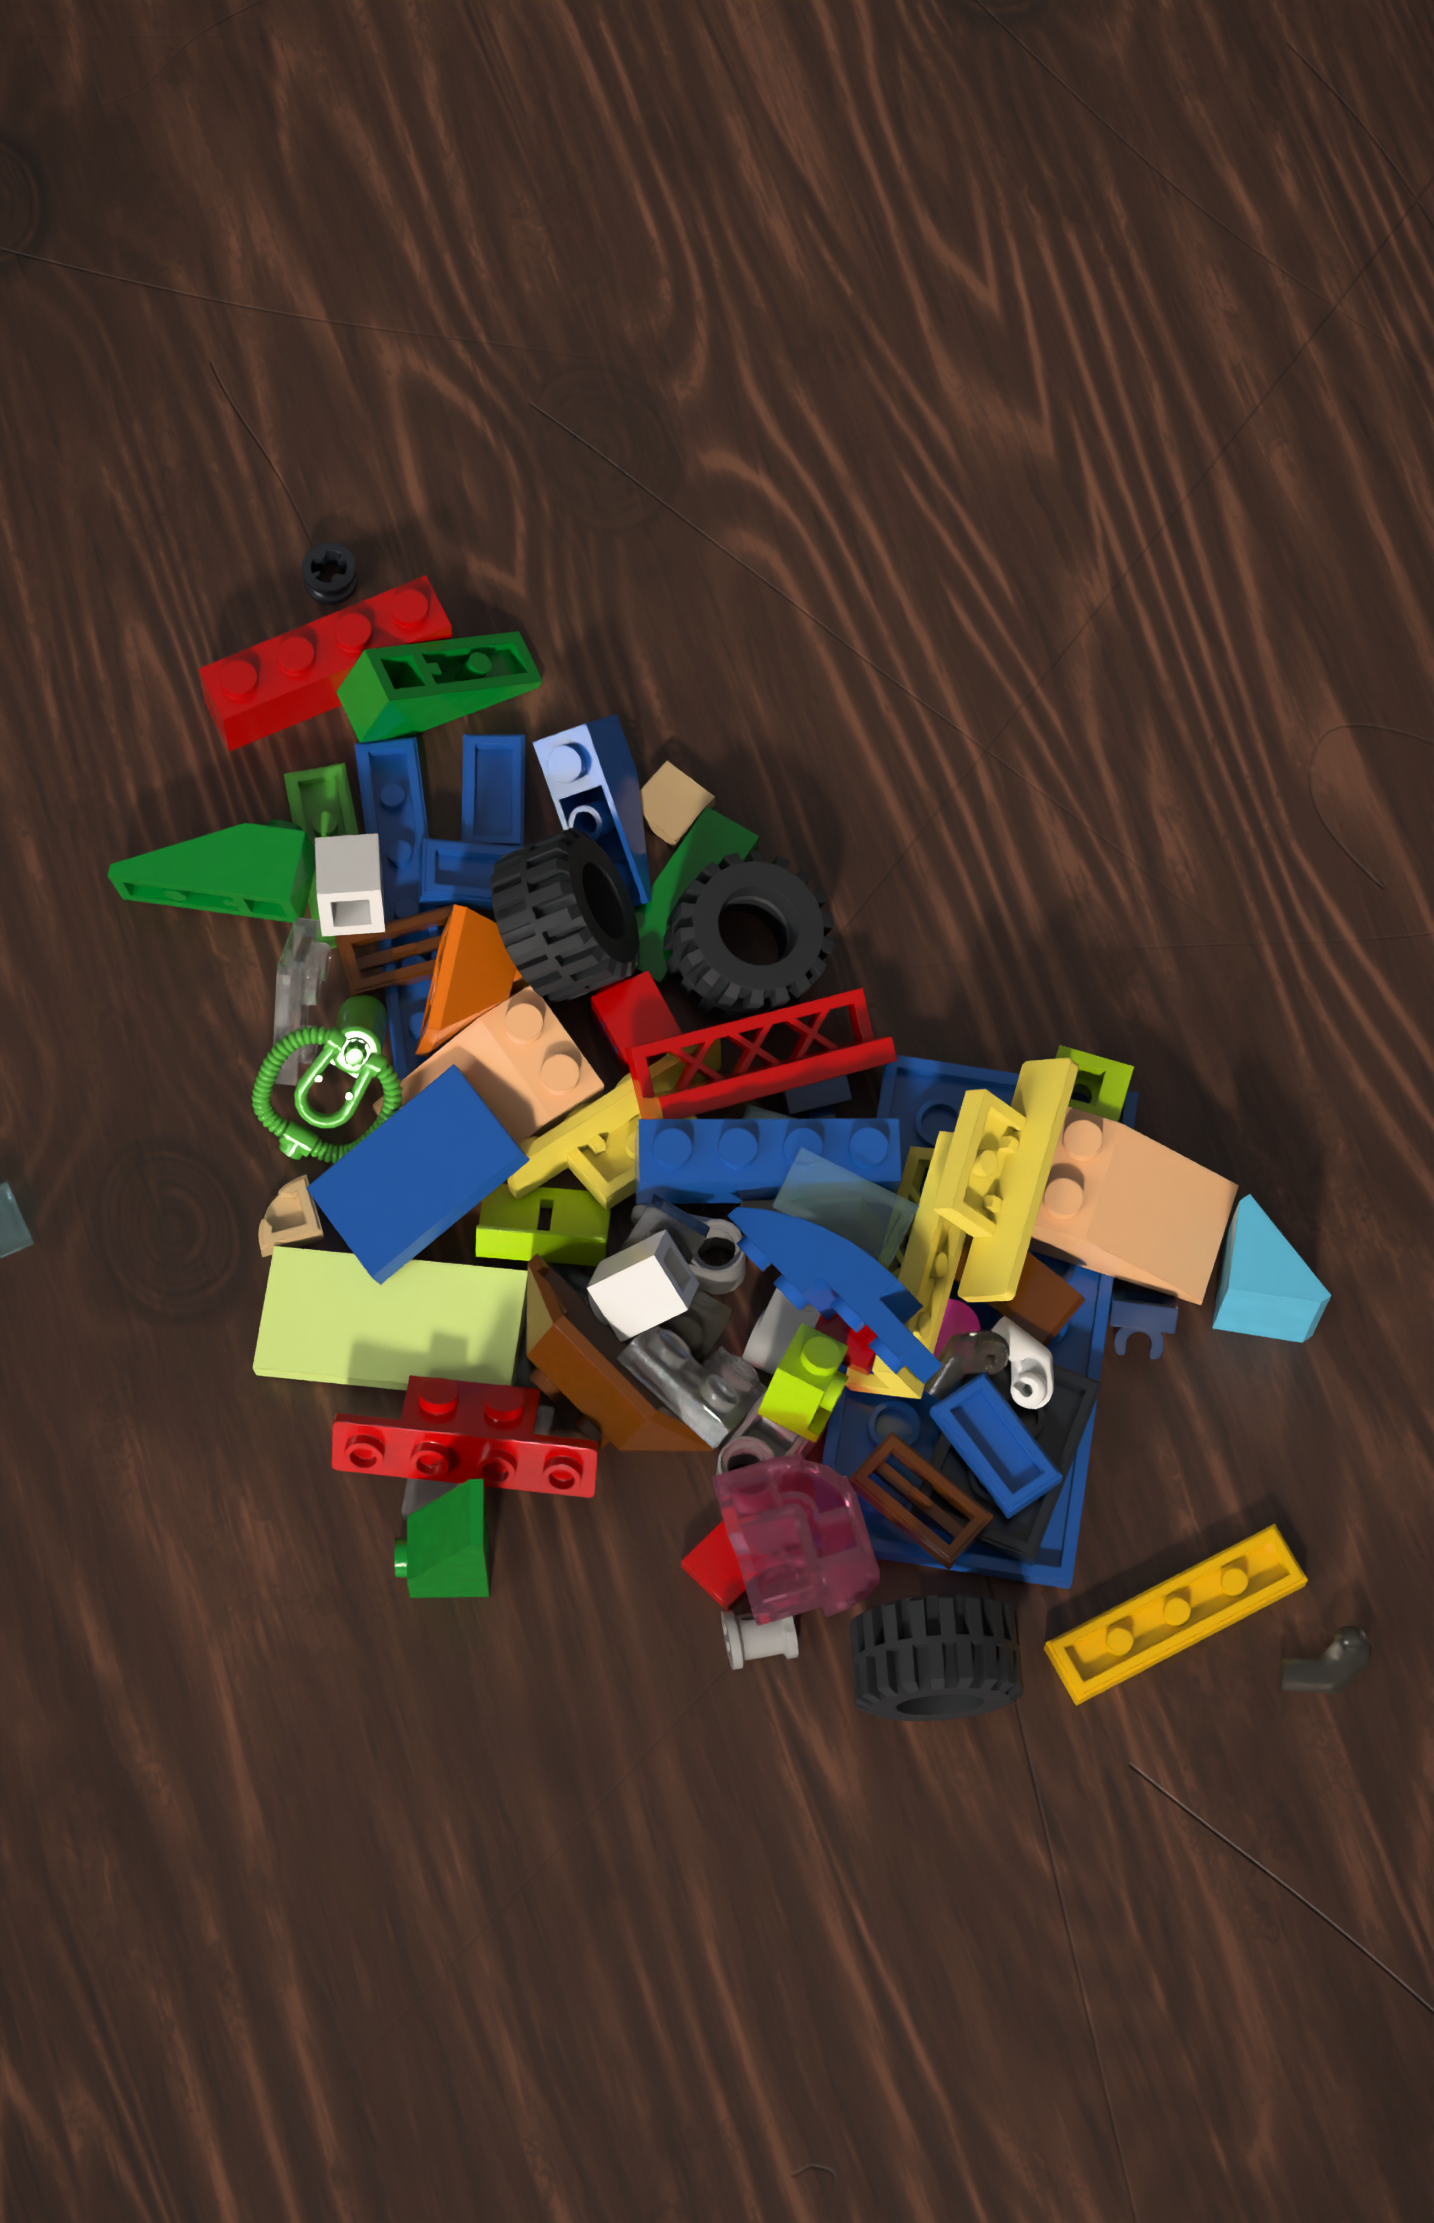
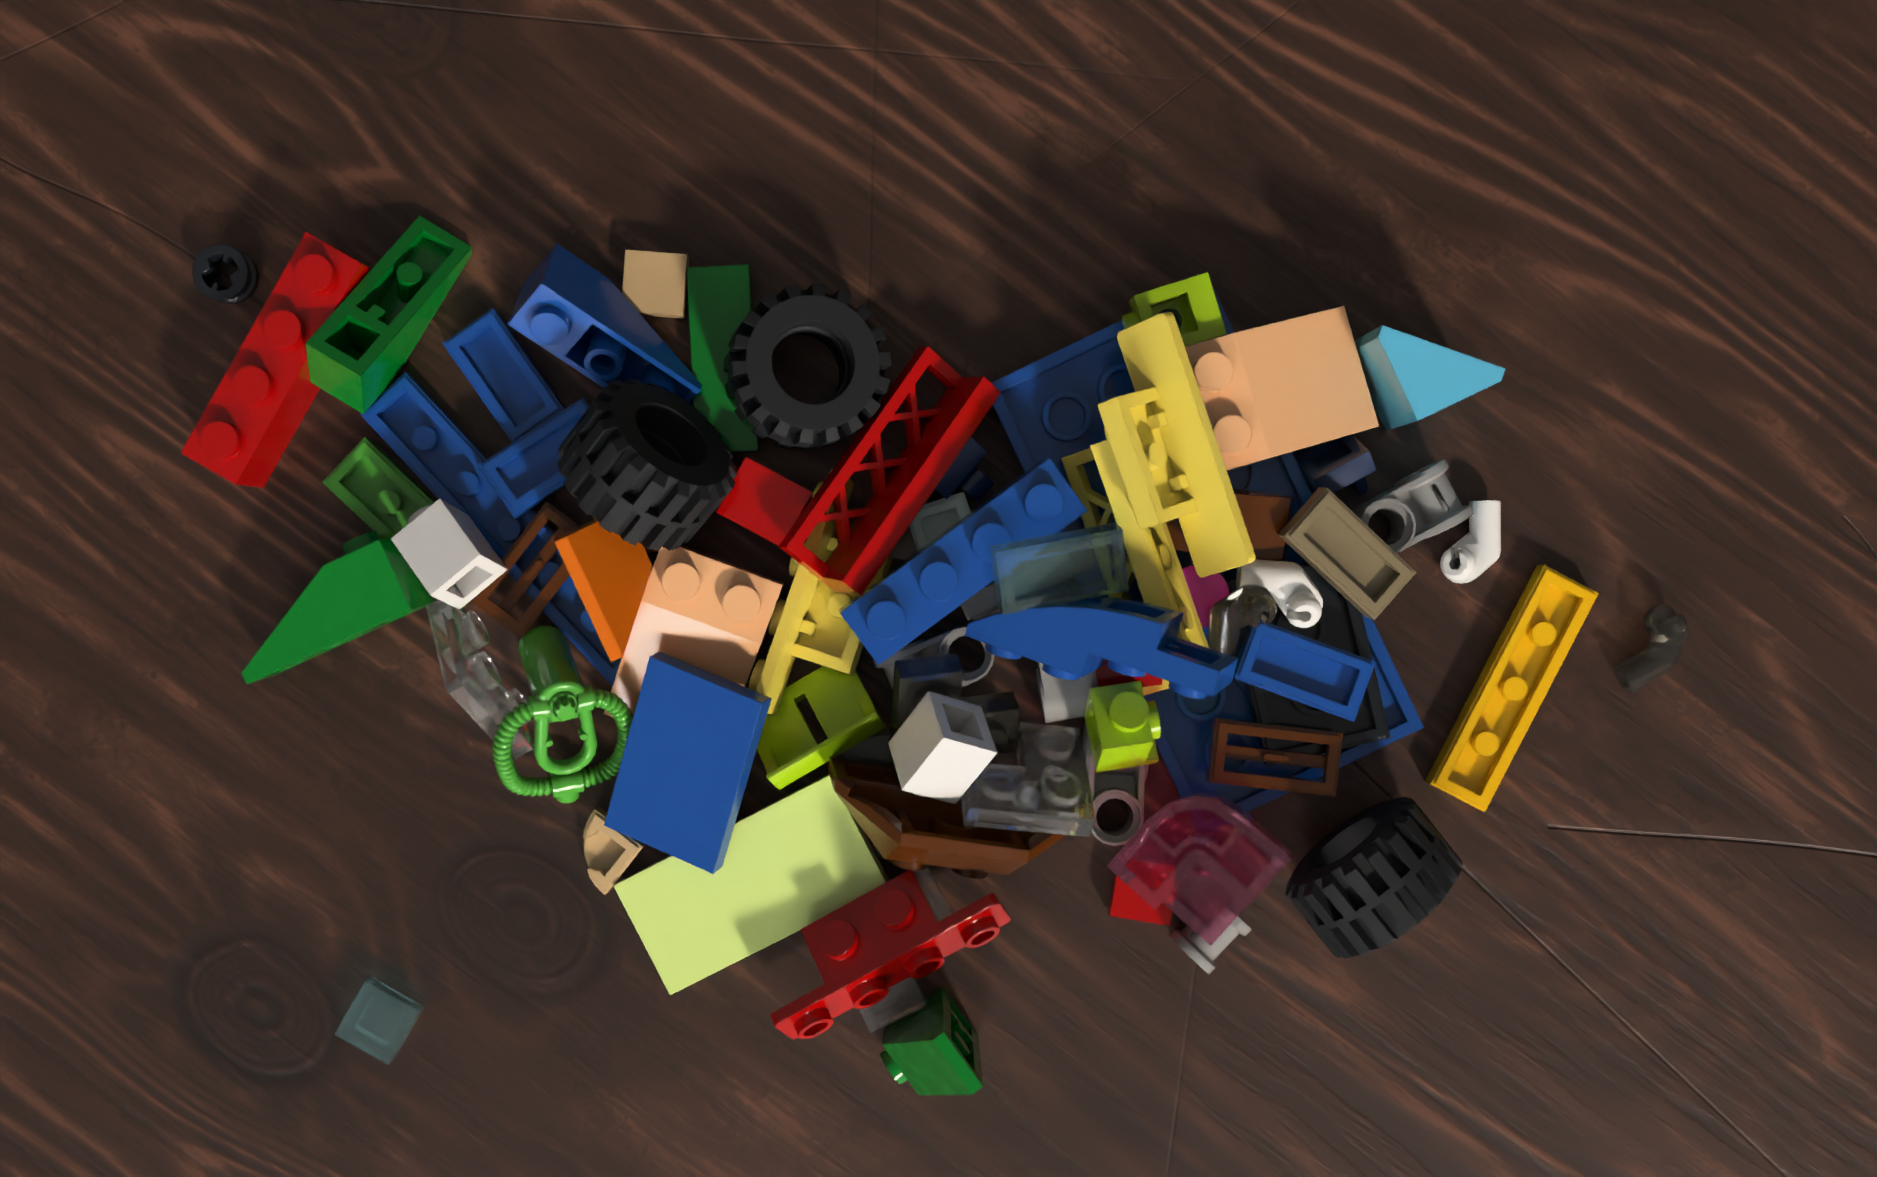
camera: 35 degrees left, 20 degrees up
(1099, 1372) = (1347, 553): none -> dark tan tile
(1194, 1394) = (1417, 506): none -> light grey piece
(1224, 1474) = (1478, 548): none -> white arm

